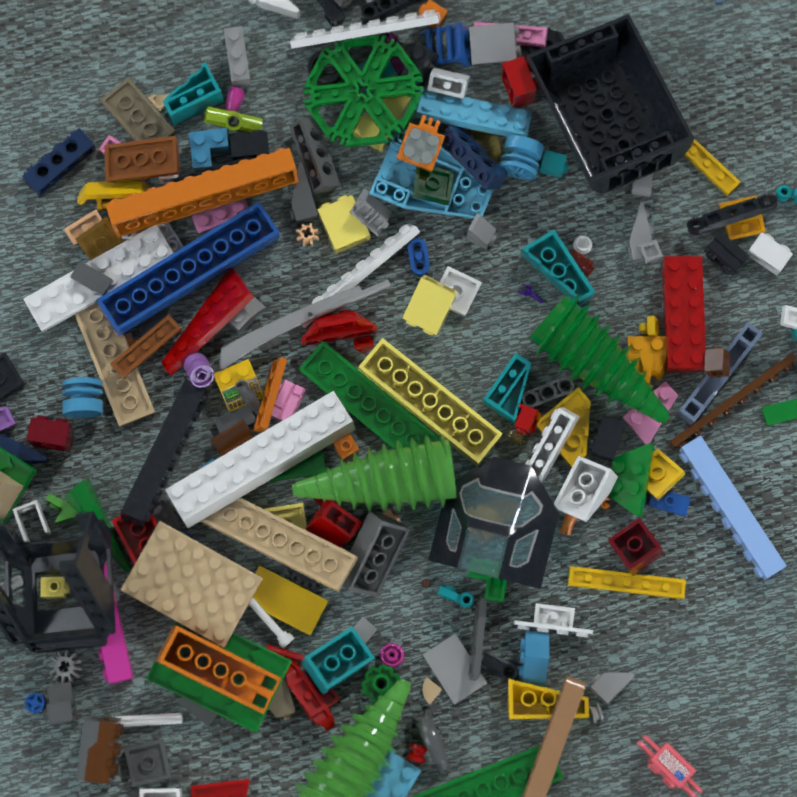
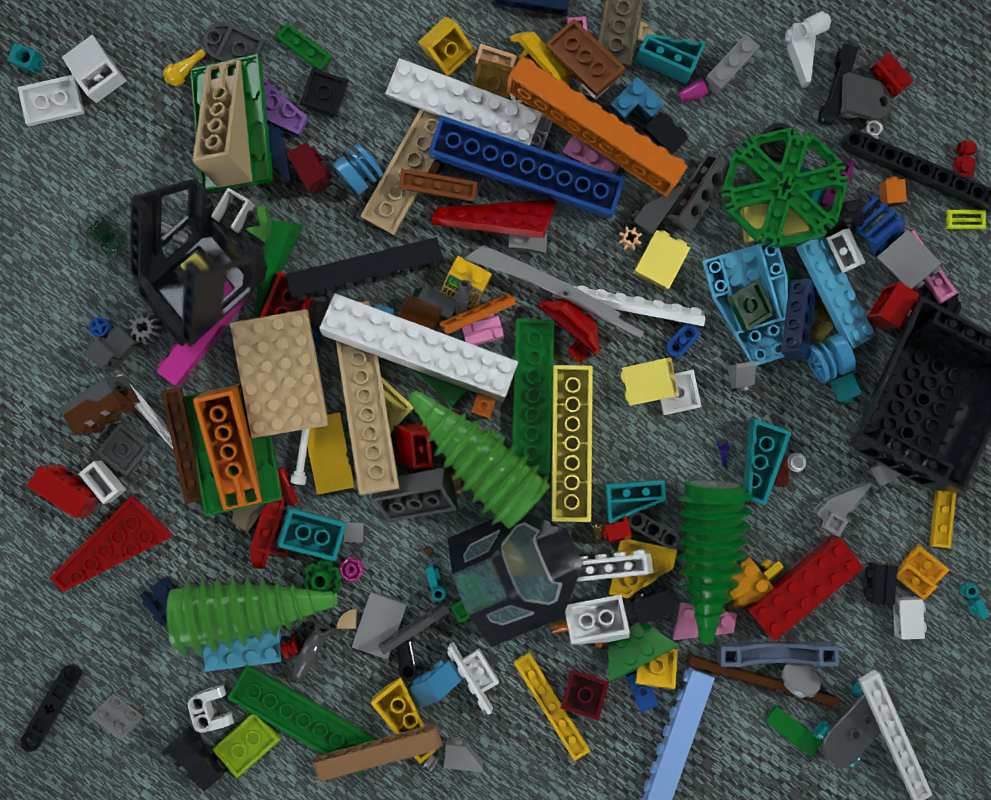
camera: 50 degrees right, 10 degrees up
(42, 256) = (446, 46): none -> yellow slope
(91, 278) = (456, 97): dark grey tile -> none
(185, 709) = (182, 443): none -> reddish brown plate
(198, 370) = (451, 242): medium lavender wheel -> none
(221, 117) = (669, 92): lime piece -> none
(357, 29) = (832, 142): white plate -> none
(371, 212) = (688, 274): light grey hinge -> none
(421, 144) = (777, 270): piece -> none
(717, 362) = (785, 647): brick -> none
(724, 217) = (918, 564): black piece -> none
(753, 371) = (801, 680): none -> light grey tile

